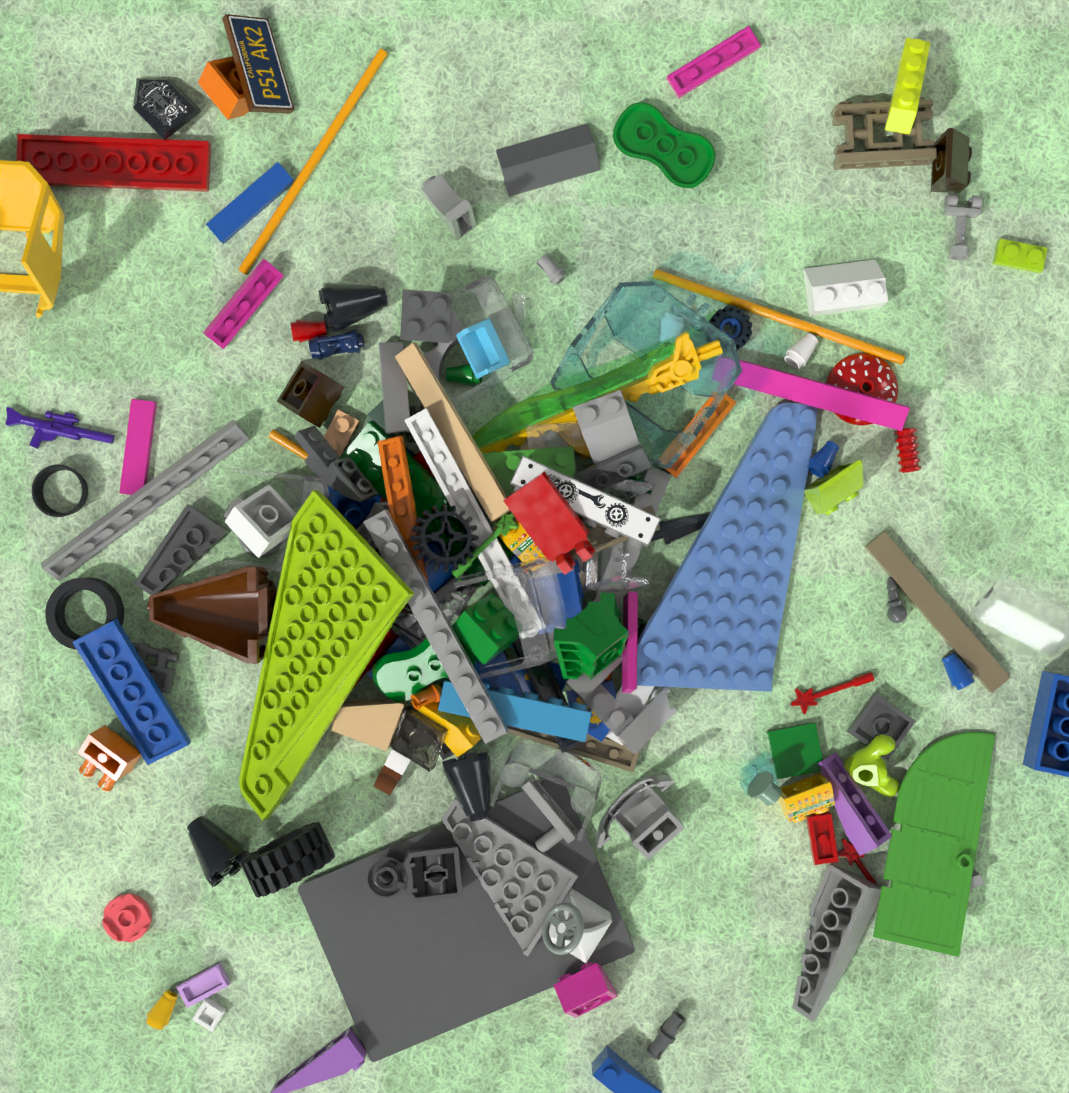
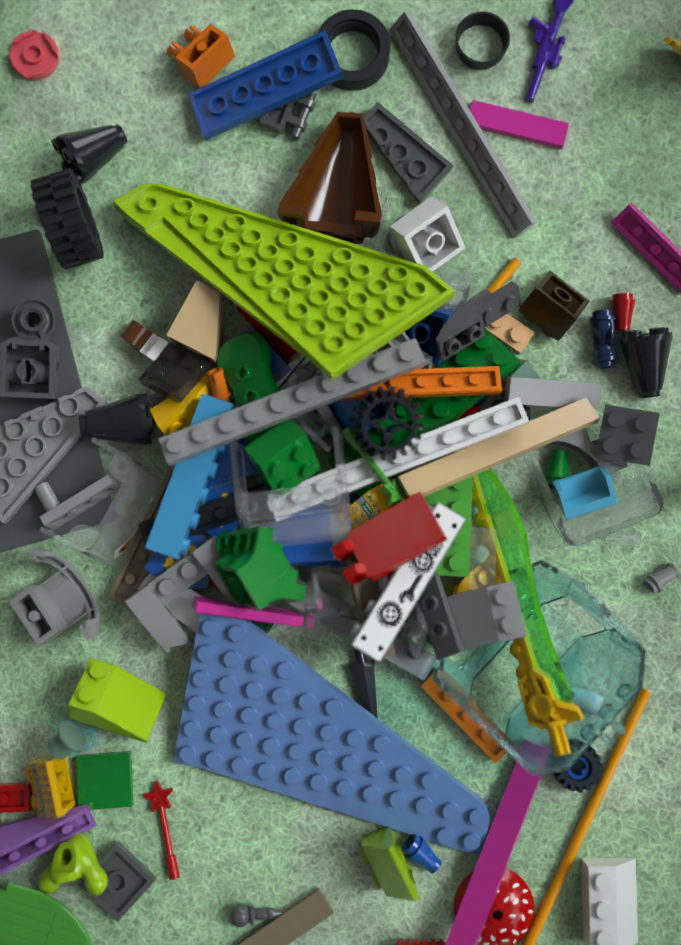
camera: 100 degrees right, 5 degrees down
(724, 749) = (116, 701): none -> lime slope
(800, 352) = (542, 842): white cone -> none

